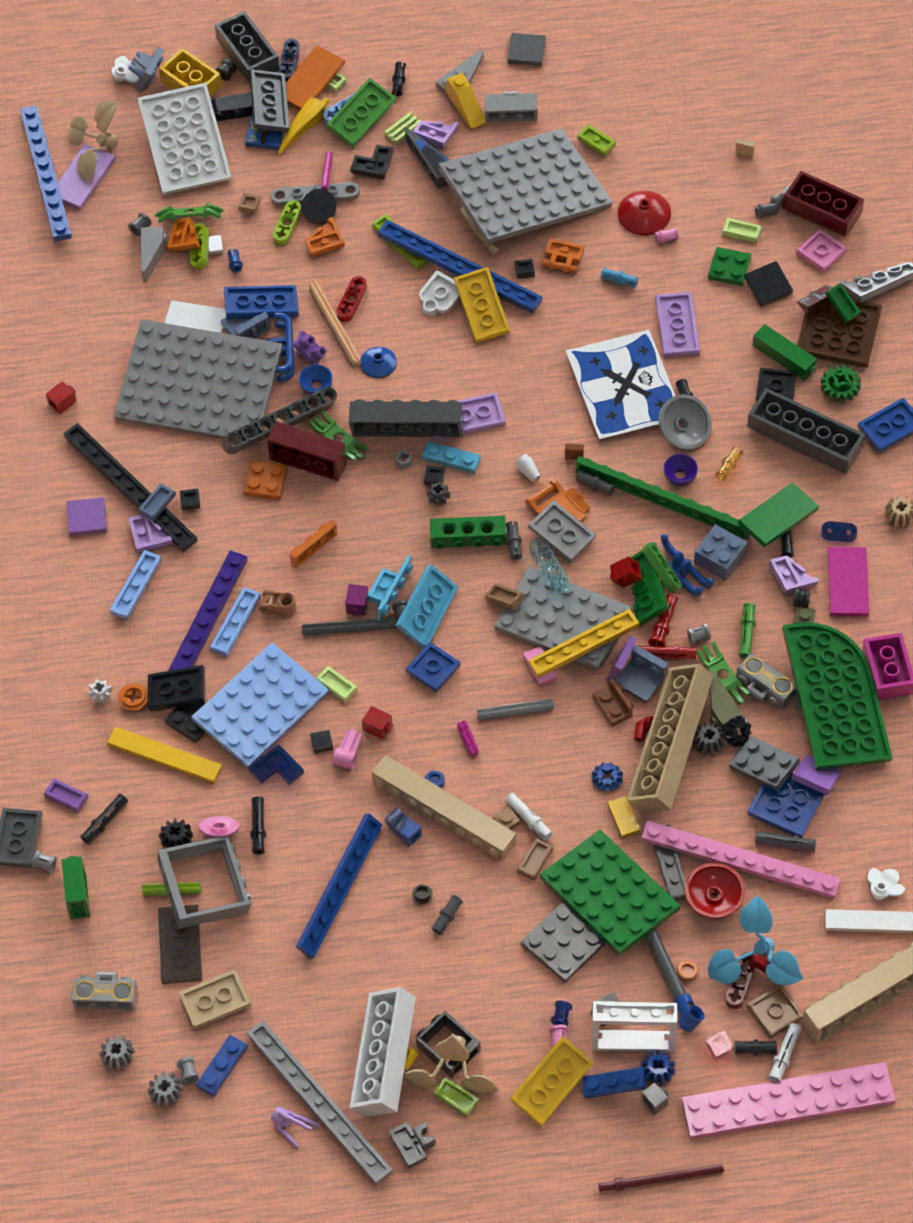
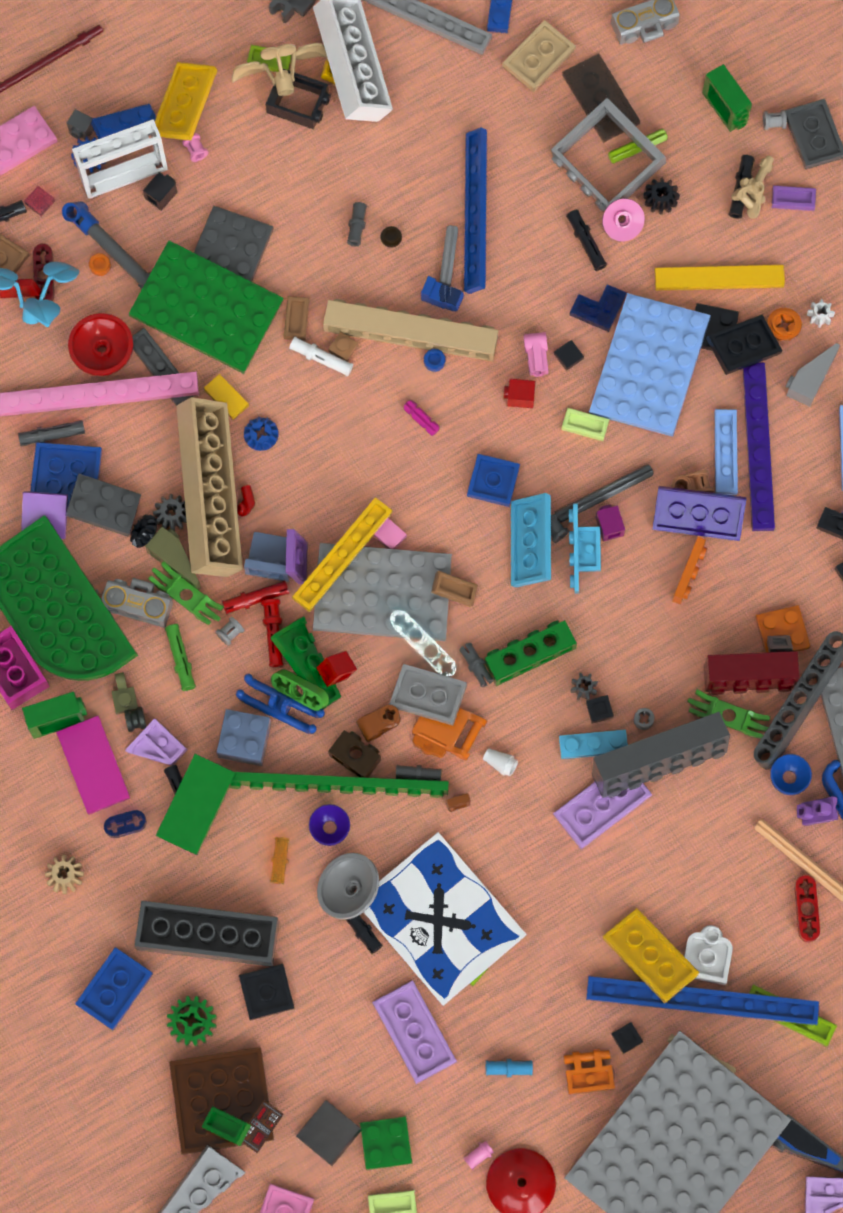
camera: 155 degrees right, 15 degrees up
(95, 809) = (754, 189): none -> tan piece
(136, 646) = (810, 377): none -> light grey slope
(275, 459) = (779, 643): none -> flat silver plate
(283, 577) = (699, 513): none -> tile
(381, 367) = (735, 849): blue dish -> none
(381, 858) = (448, 255): none -> light grey axle
(515, 709) = (387, 469): light grey axle -> none
(561, 1013) = (203, 172): clear blue bush -> none
(610, 526) = (377, 723): none -> dark orange piece
(614, 703) = (287, 515): dark orange bracket -> none
(637, 501) = (341, 752): none -> dark brown brick
(784, 352) = (271, 1038): green brick -> none
(866, 616) = (54, 714): none -> green window

